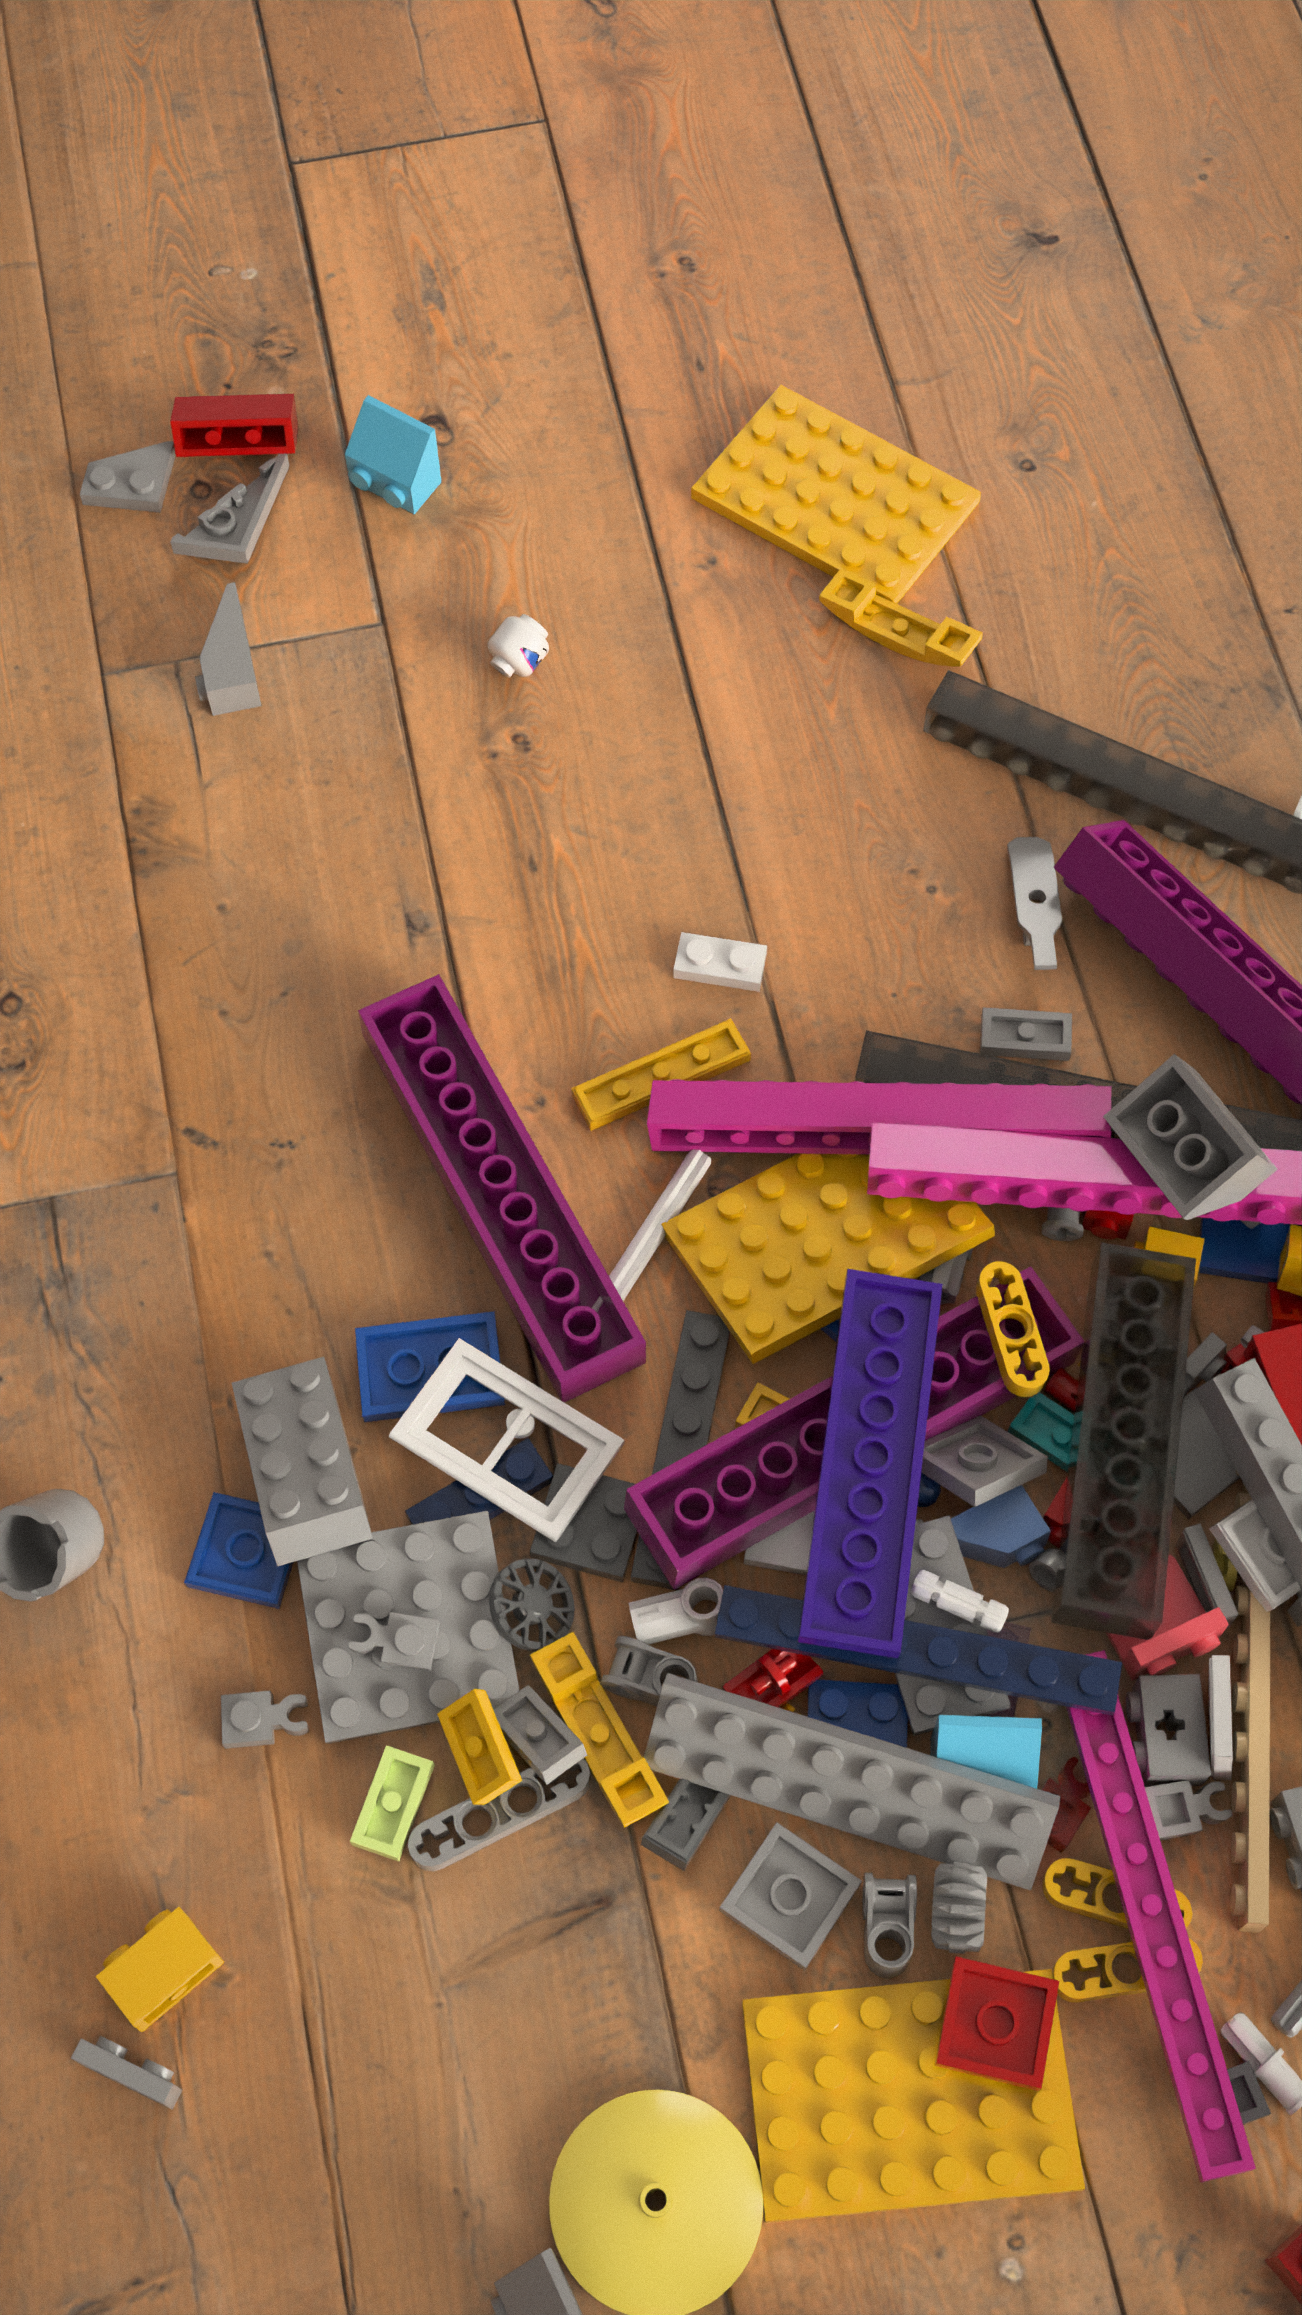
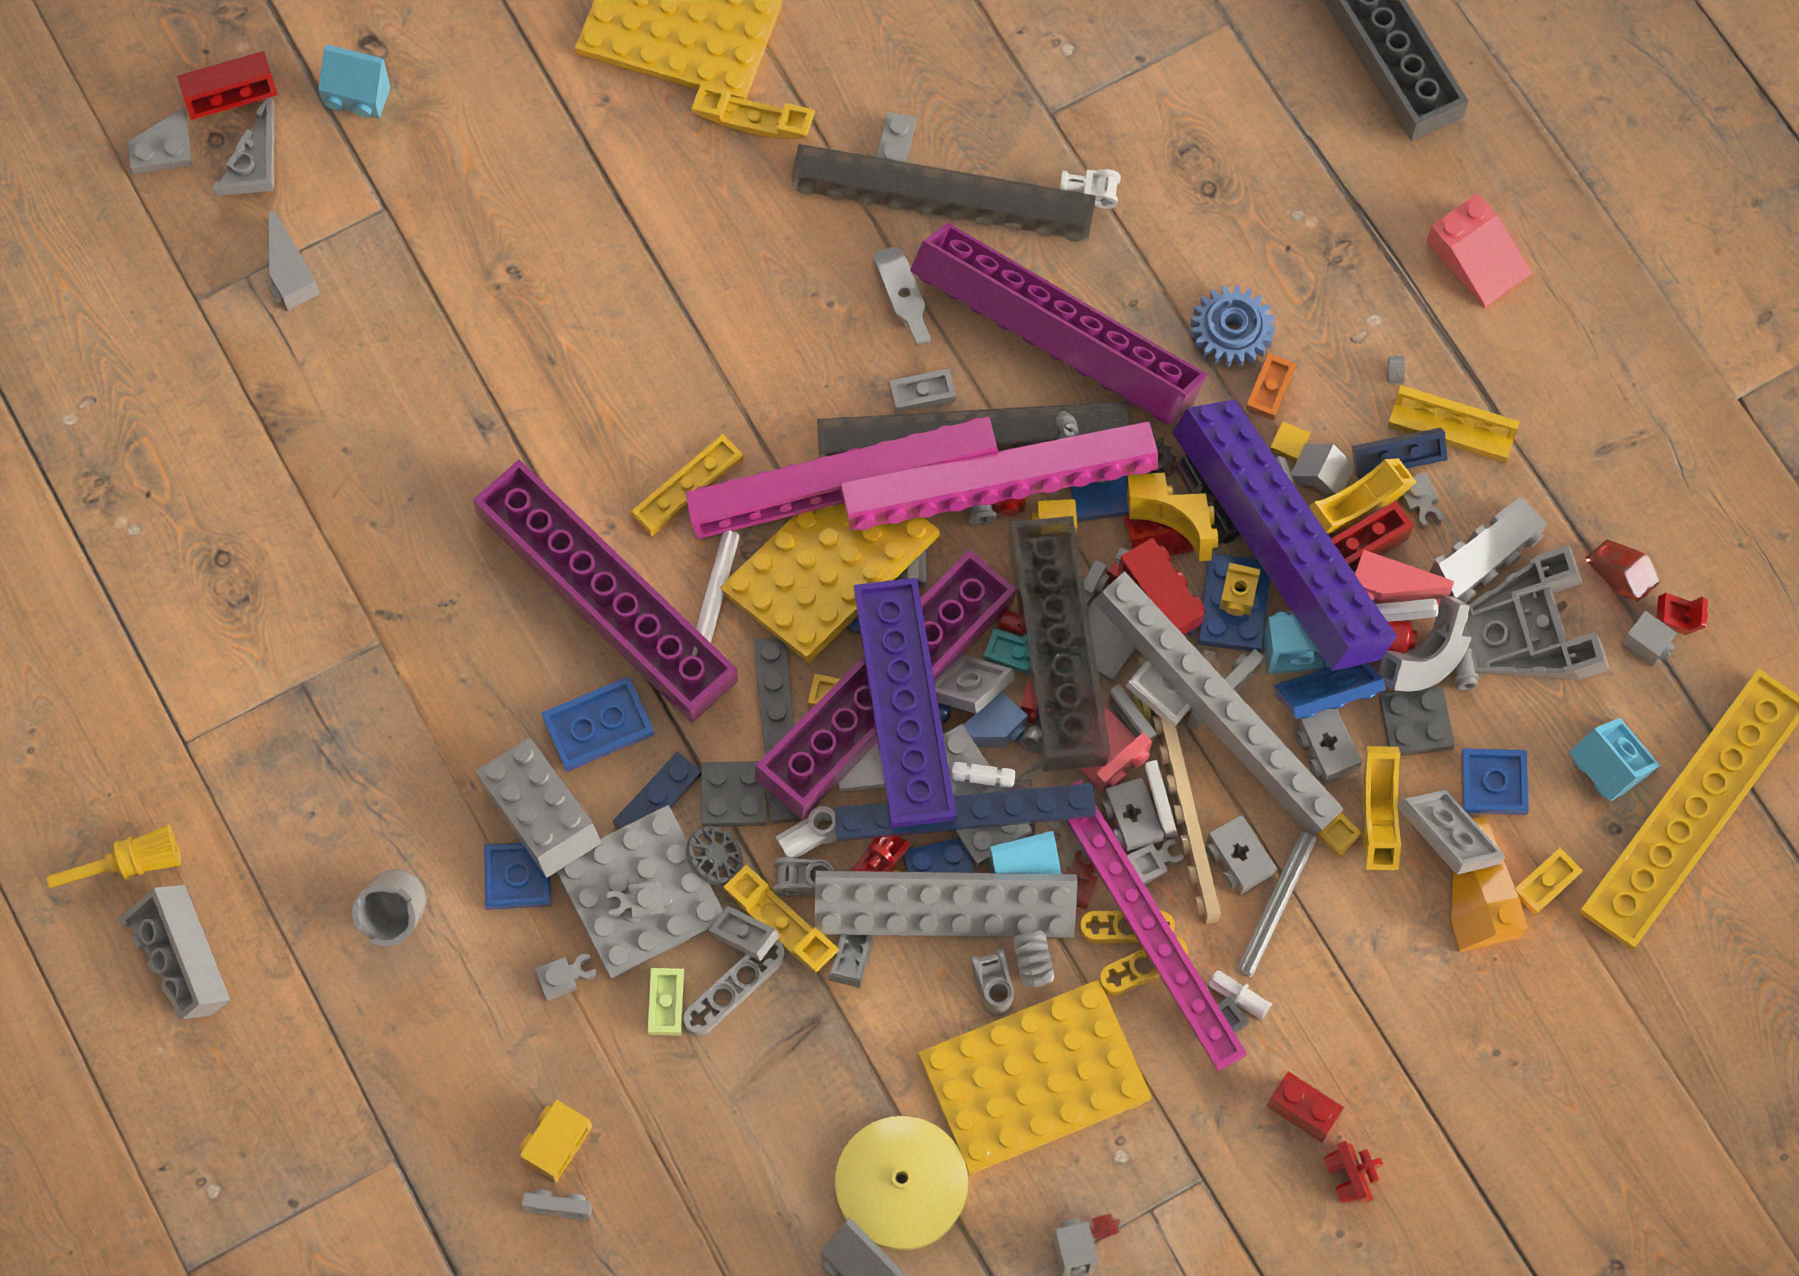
camera: 20 degrees left, 5 degrees up
(479, 1747) = (710, 950): yellow plate -> none
(518, 646) = (490, 203): white head -> none
(532, 1402) = (673, 727): white door -> none
(720, 961) = (702, 395): white plate -> none
(790, 1896) = (929, 983): light grey plate -> none
(997, 2023) = (1074, 1018): red plate -> none
(1017, 1308) = (987, 608): yellow beam -> none
(1086, 697) = (897, 137): none -> light grey plate
(1189, 1140) = (1048, 440): light grey slope -> none

